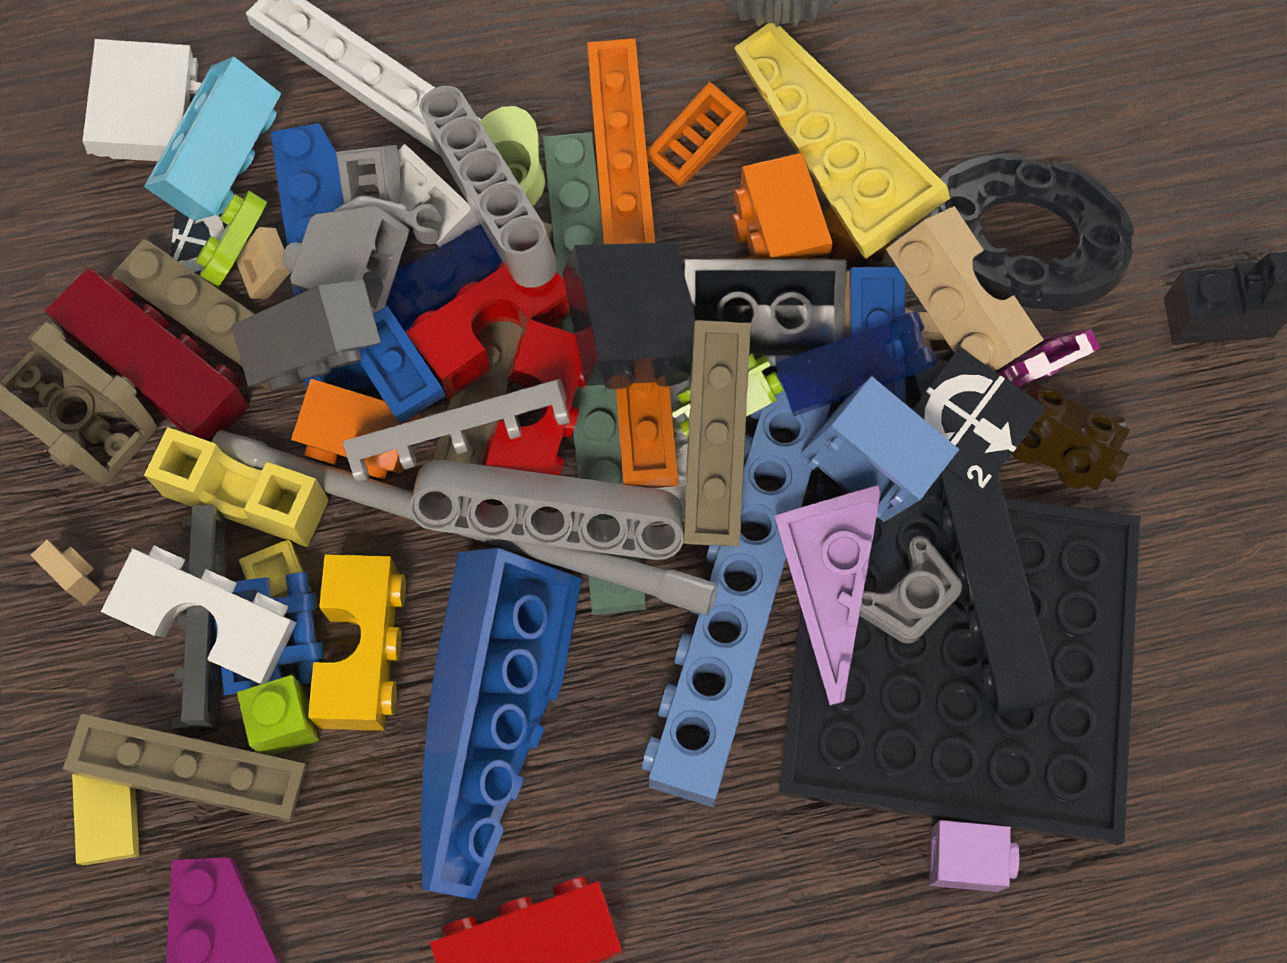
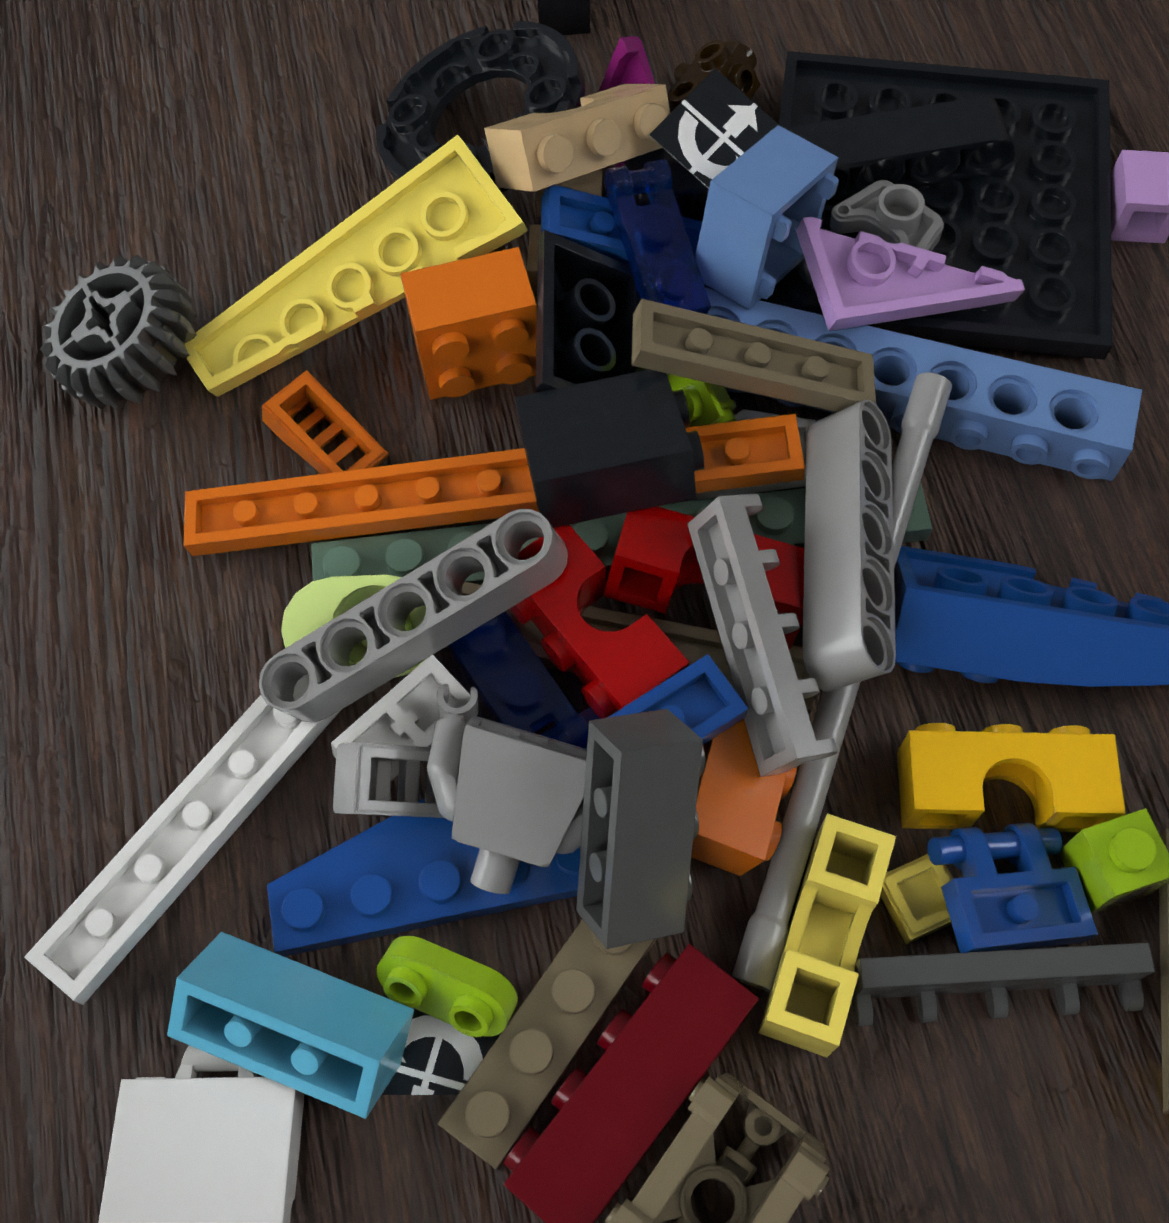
camera: 90 degrees left, 5 degrees down
(68, 570) = (956, 1172): tan plate -> none
(156, 590) = (1007, 990): white arch -> none
(262, 263) = (488, 935): tan plate -> none

